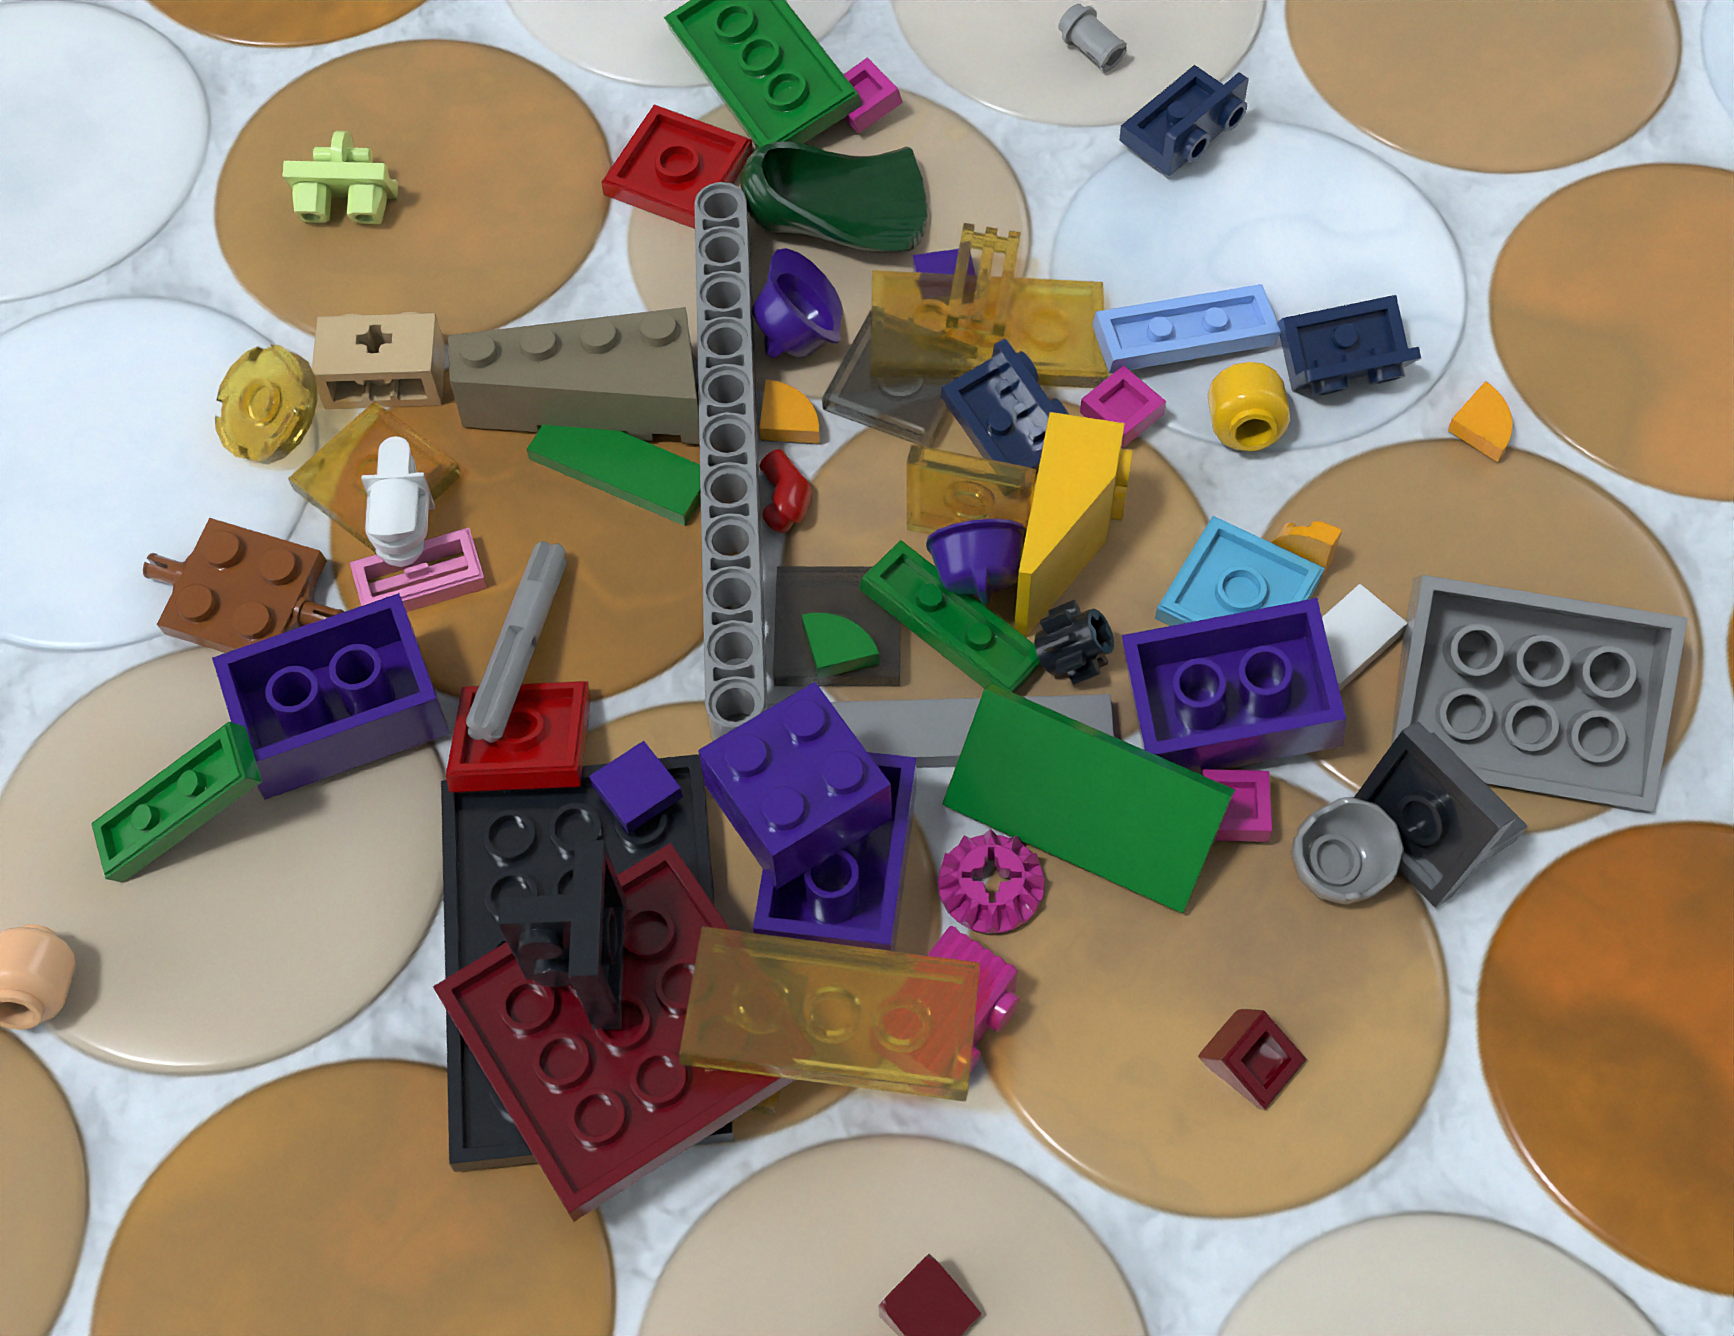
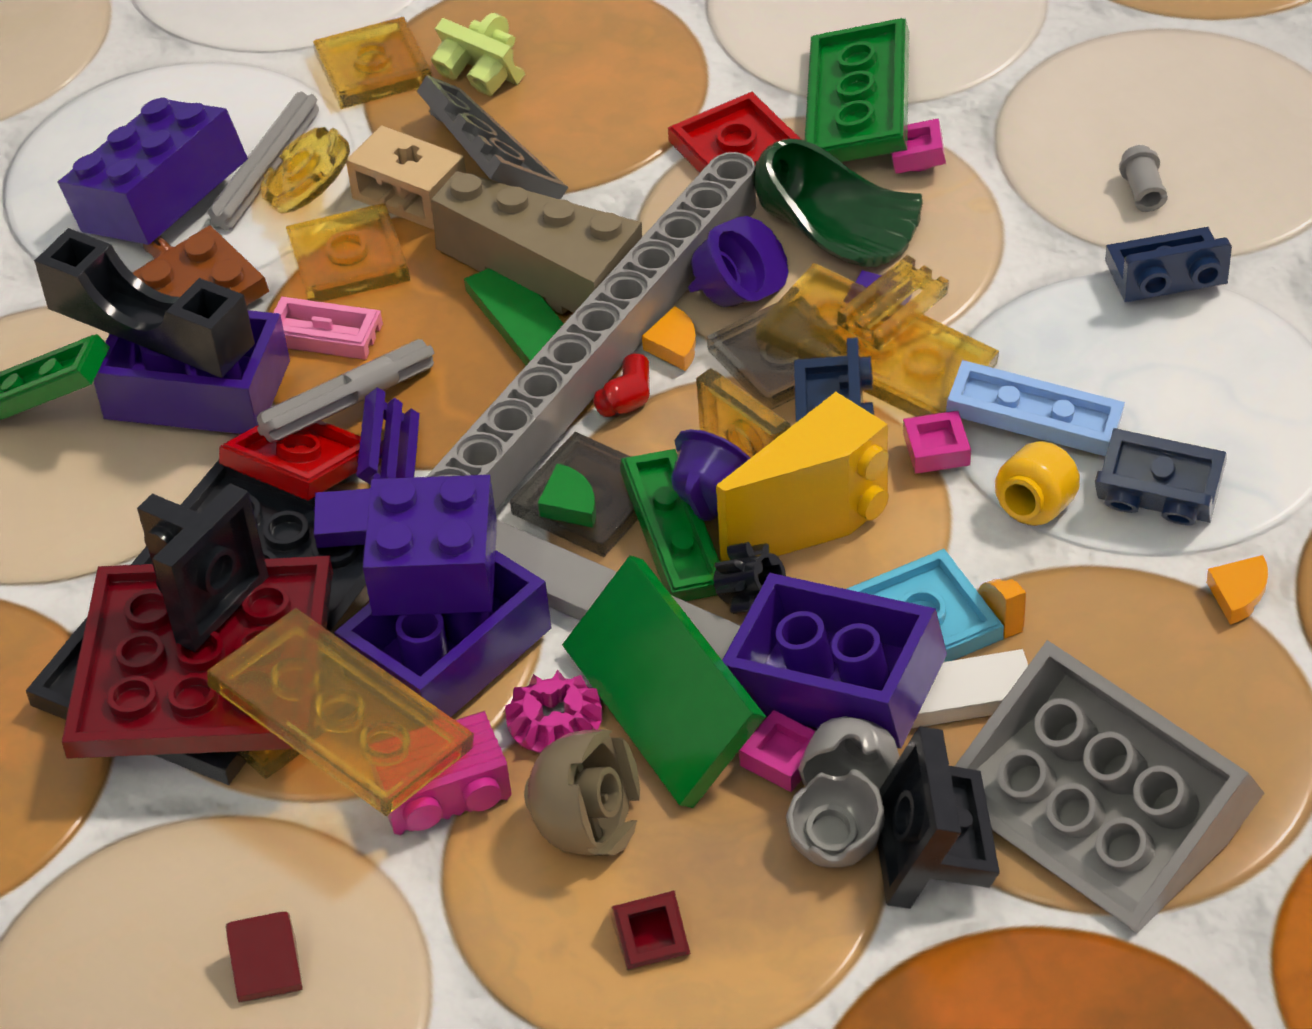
camera: 35 degrees right, 15 degrees down
(98, 485) = (152, 170): none -> dark purple brick
(191, 669) = (93, 285): none -> black arch
(198, 412) = (249, 177): none -> light grey axle
(224, 241) = (372, 62): none -> clear yellow tile
(397, 504) = (335, 265): white arm -> none
(437, 282) = (487, 141): none -> dark grey wing
(603, 677) = (399, 441): none -> dark purple tile
(1101, 960) = (584, 792): none -> dark tan cylinder
(1313, 778) = (849, 745): none -> light grey hair

